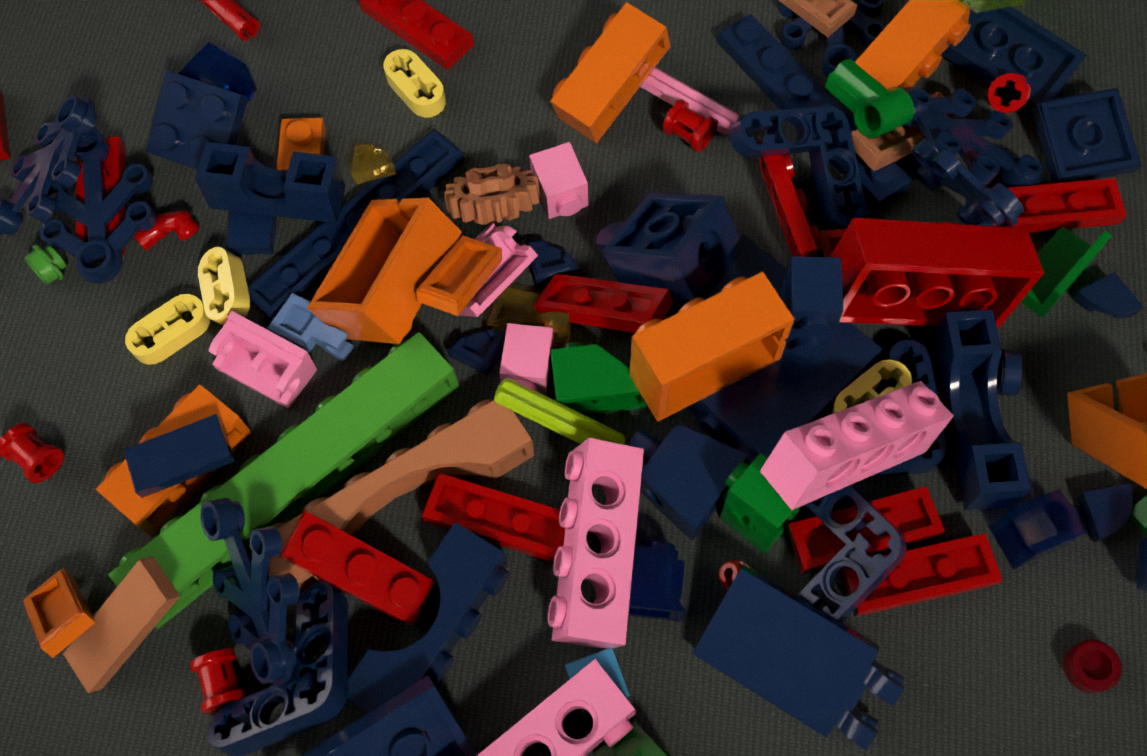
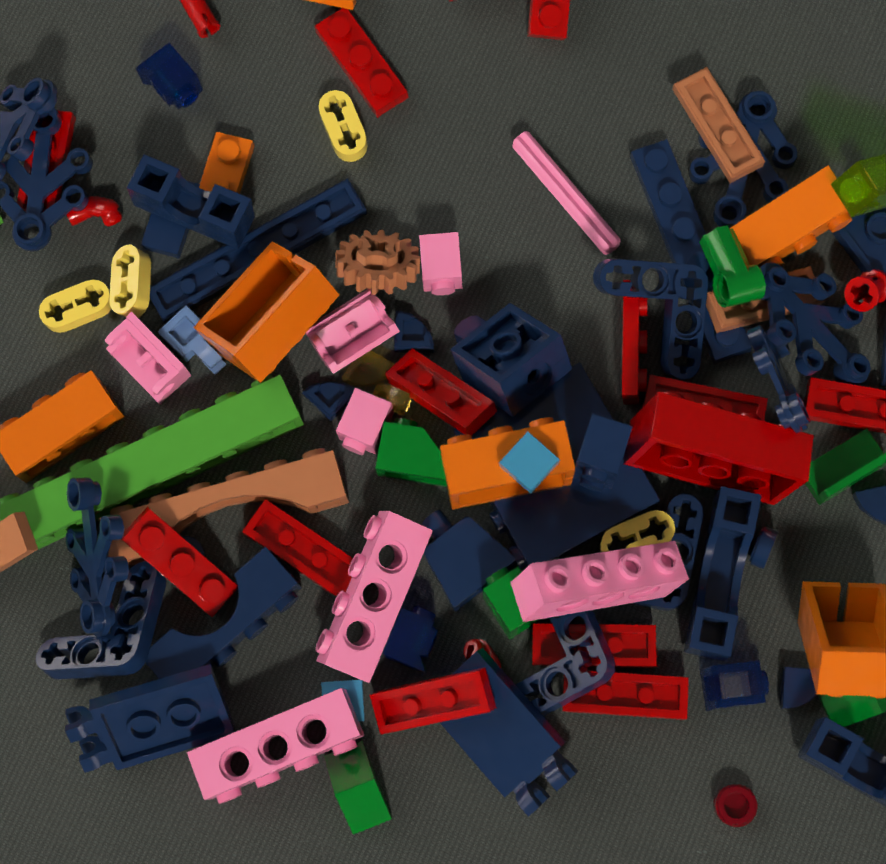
camera: 20 degrees right, 10 degrees up
(178, 455) = (61, 429): dark blue tile -> none
(190, 116) = (140, 117): dark blue plate -> none
(217, 679) = (52, 616): red bush -> none
(370, 164) = (283, 198): clear yellow tile -> none
(459, 275) = (326, 336): orange tile -> none
(553, 414) = (374, 481): lime axle -> none
(610, 72) = (515, 170): orange brick -> none
(690, 125) = (573, 239): red bush -> none
(707, 644) = (433, 701): none -> red plate
(741, 323) = (529, 462): none -> dark azure tile

